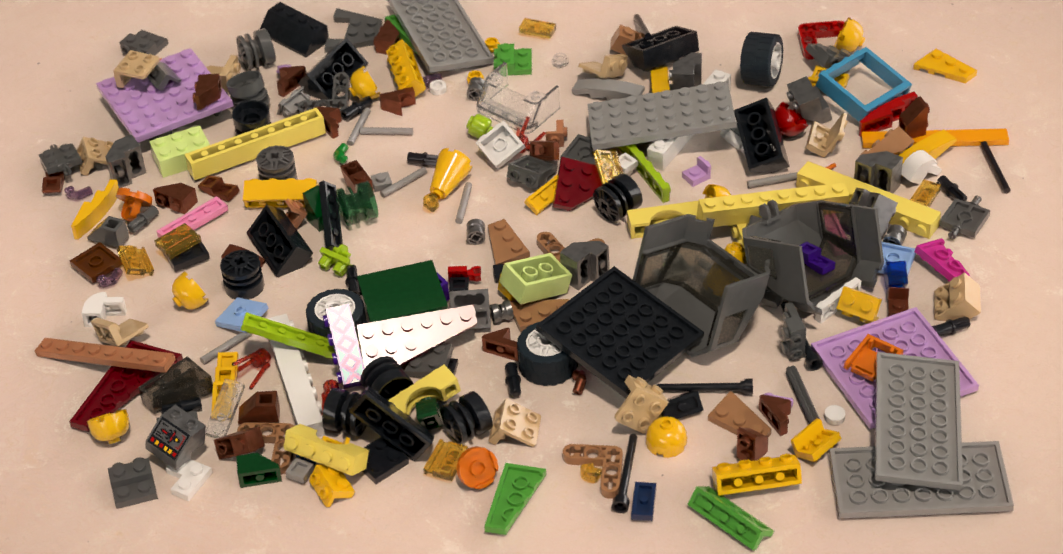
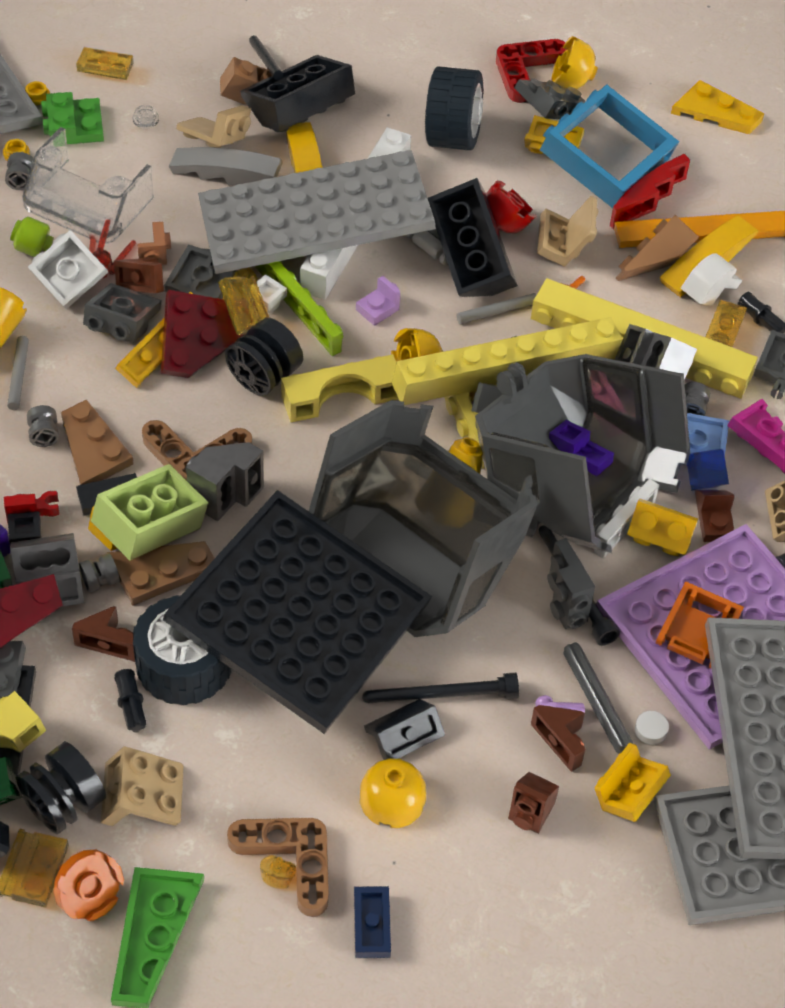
camera: 15 degrees left, 10 degrees up
(580, 378) = (242, 695): copper arm -> none
(621, 502) = (334, 927): black piece -> none
(642, 405) = (353, 745): tan bracket -> none
(686, 72) = (344, 136): flat silver piece -> none
(729, 516) = (515, 939): bright green fence -> none
(734, 413) = (501, 745): medium nougat wing -> none
(756, 474) = (549, 858): yellow brick -> none
(808, 101) = (532, 175): flat silver piece -> none
(879, 170) = (656, 290): flat silver piece -> none
(914, 118) = (695, 199): copper slope -> none

